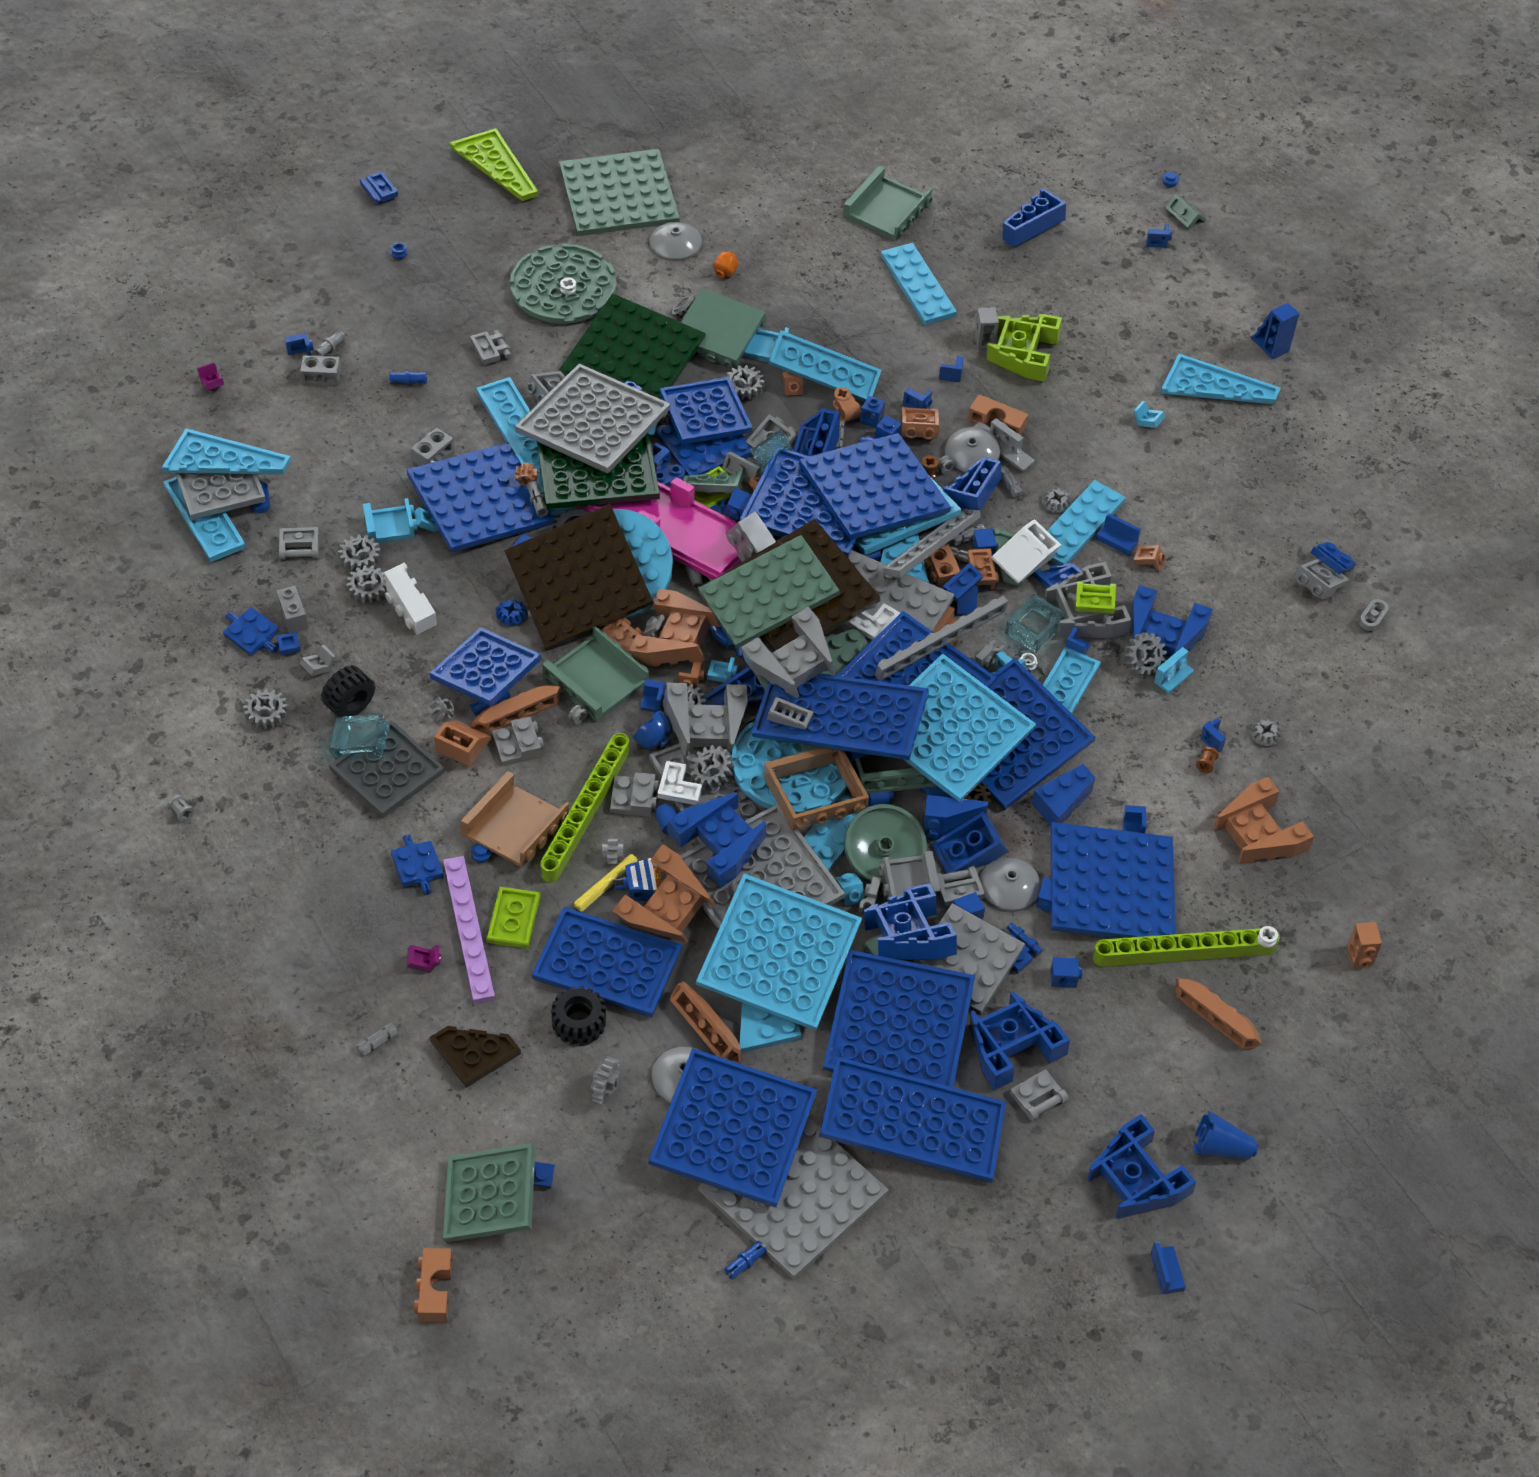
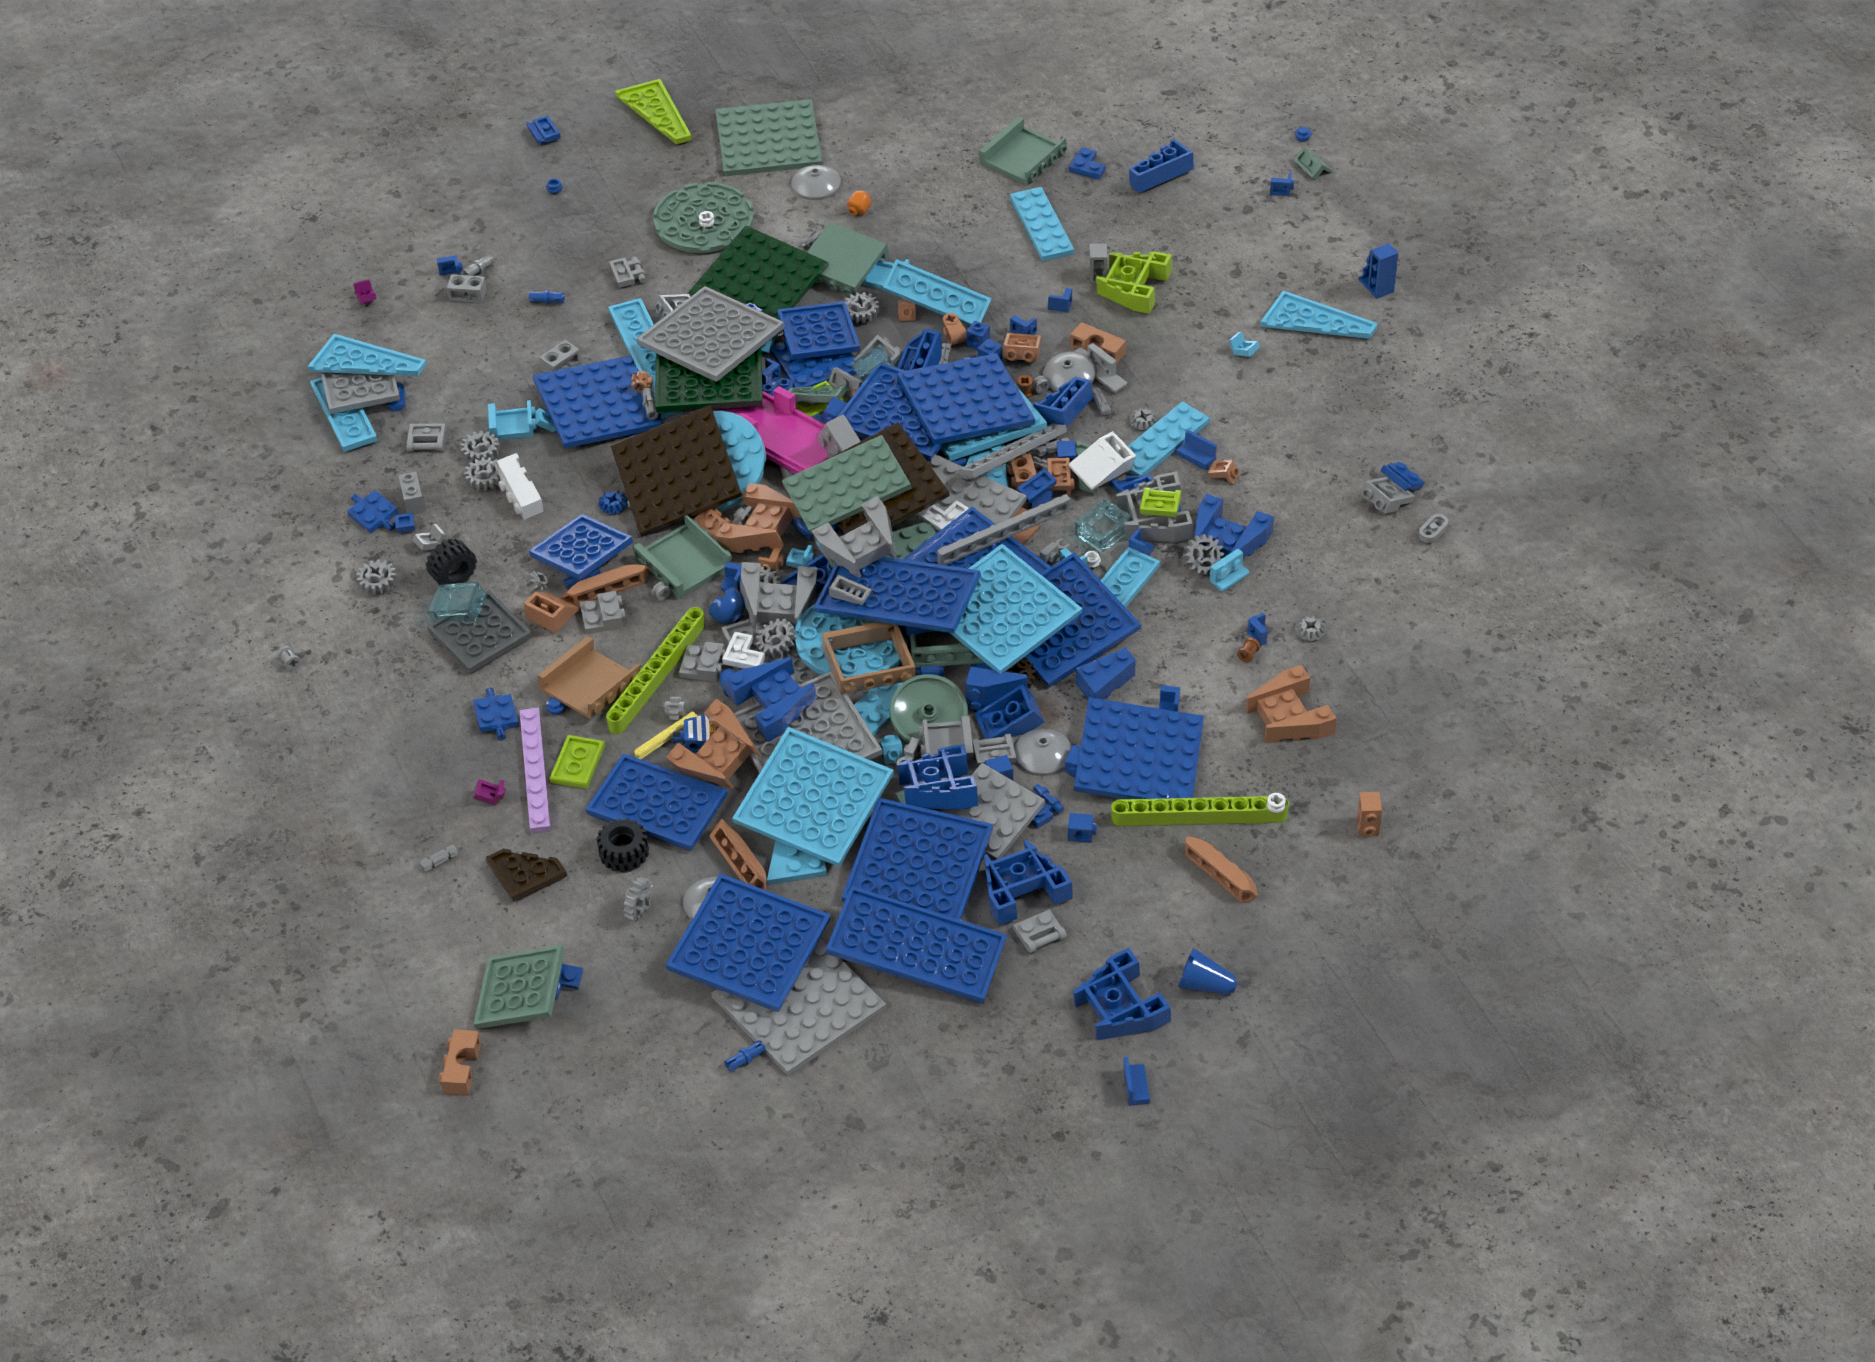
camera: 10 degrees right, 5 degrees down
(952, 218) = (1084, 164): none -> blue plate

